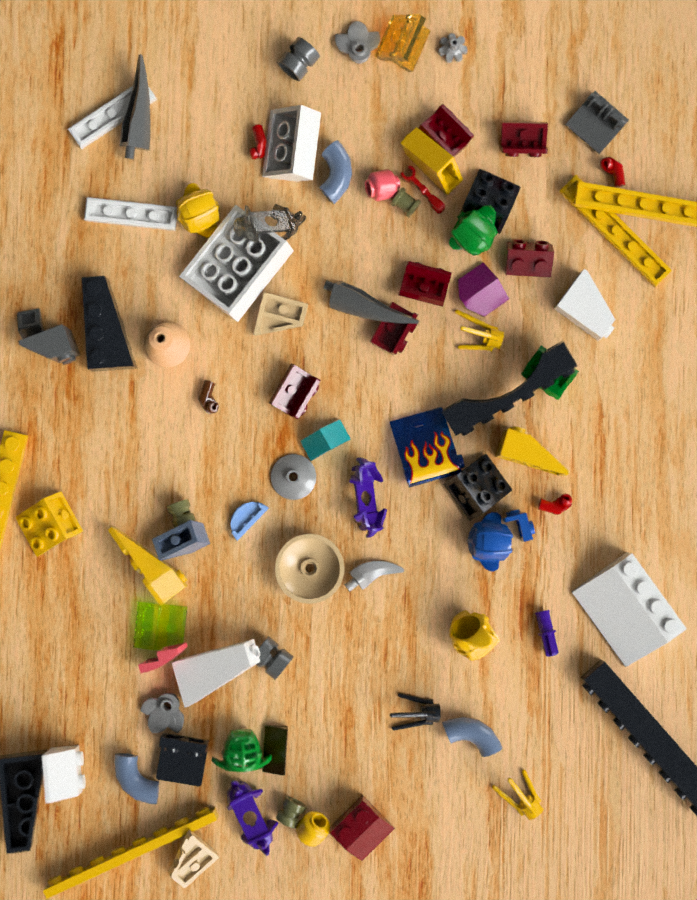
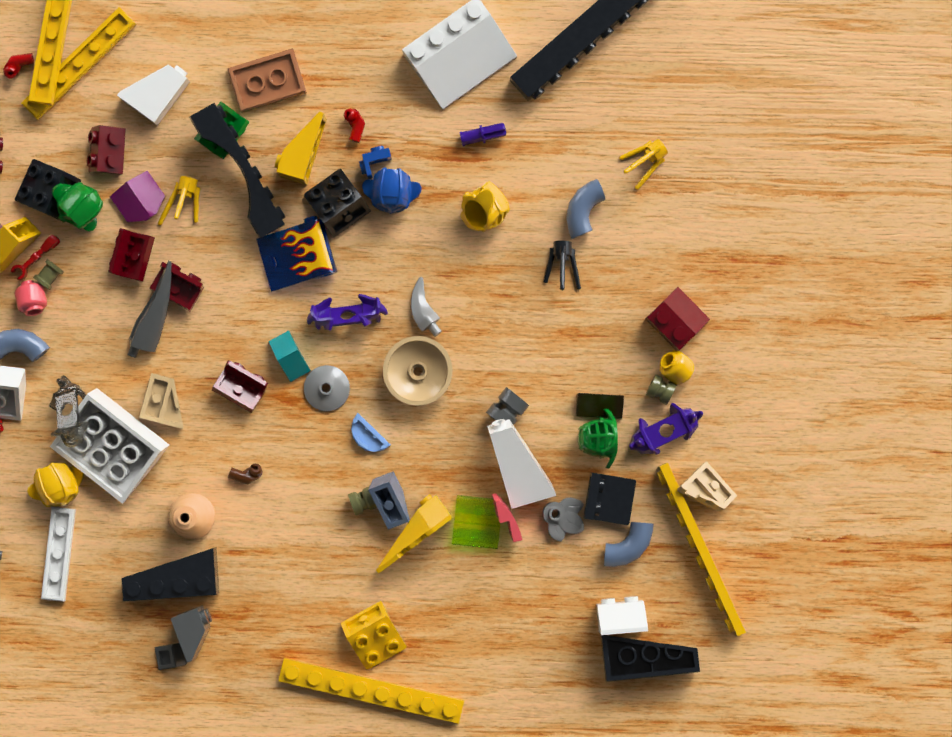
camera: 85 degrees left, 0 degrees up
(599, 417) = (267, 80): none -> nougat tile

